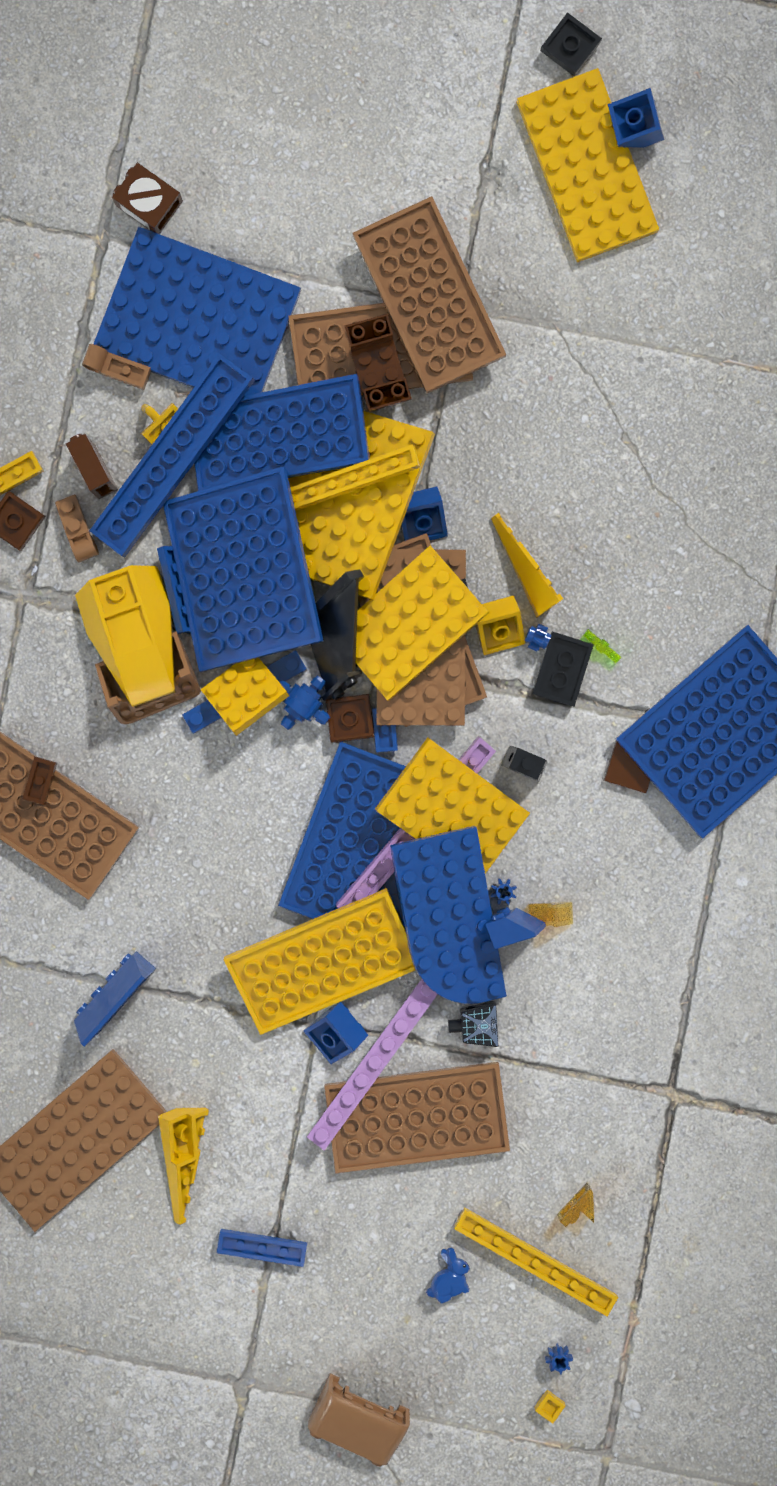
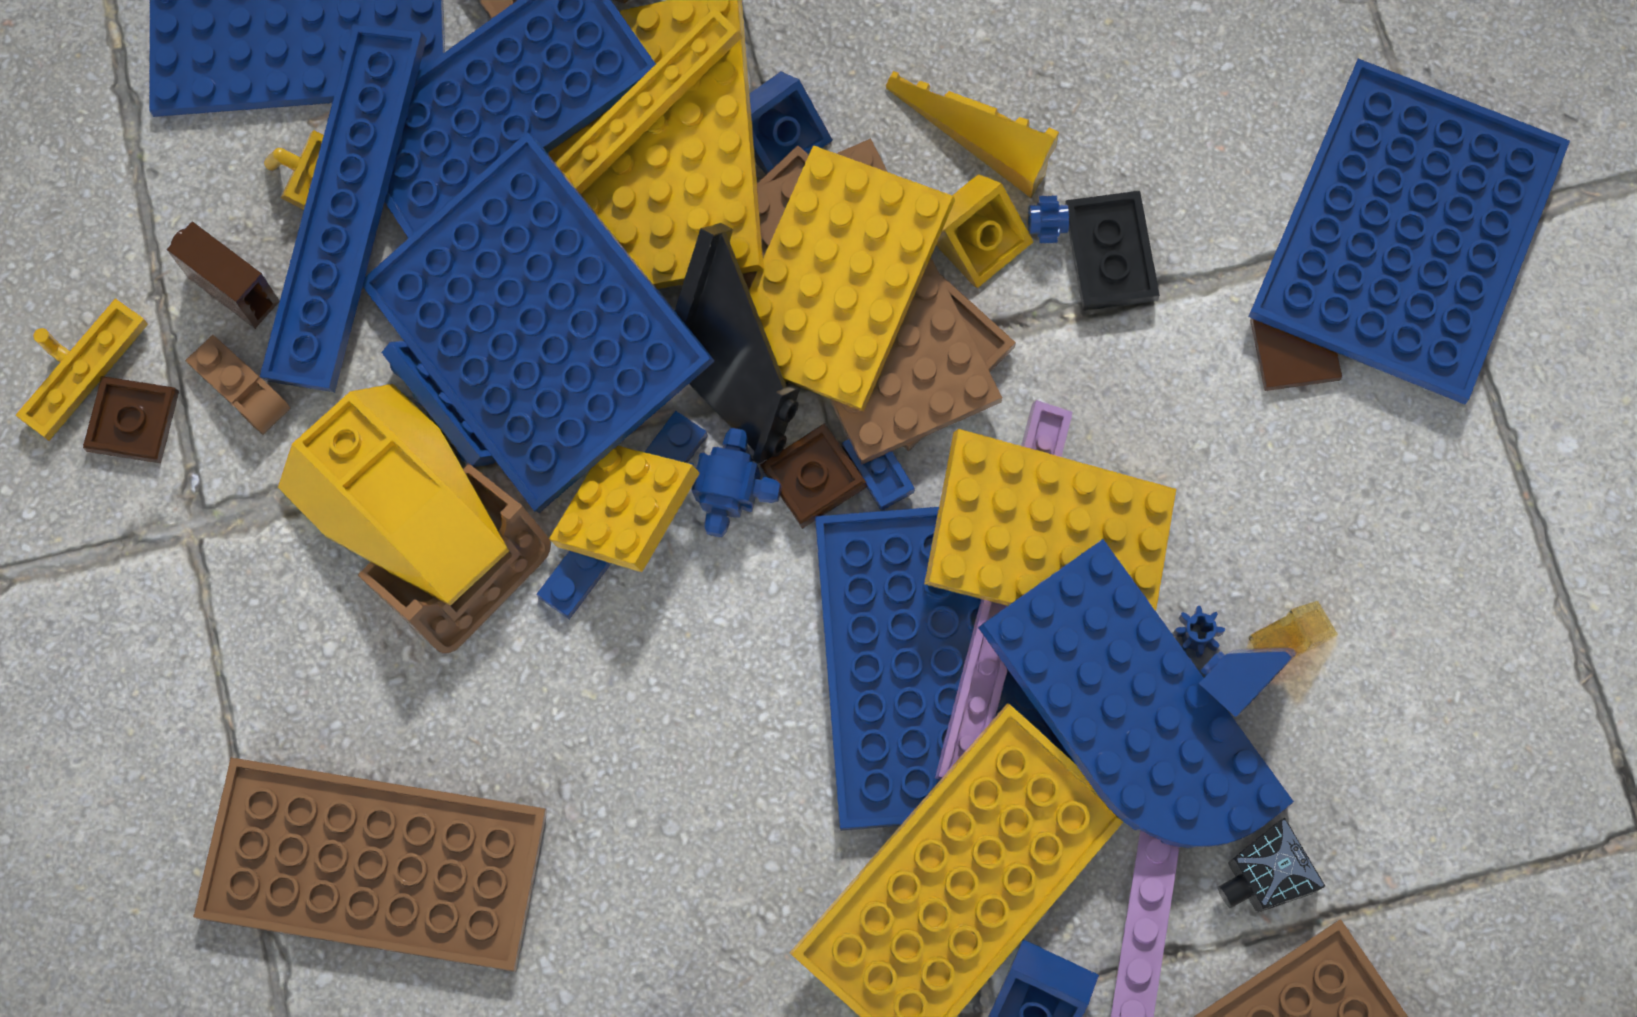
camera: 20 degrees left, 15 degrees down
(40, 780) = (344, 803): reddish brown plate -> none
(116, 367) = (209, 121): medium nougat plate -> none
(524, 763) = (1128, 414): black torso -> none
(602, 646) = (1154, 190): clear neon green bar -> none

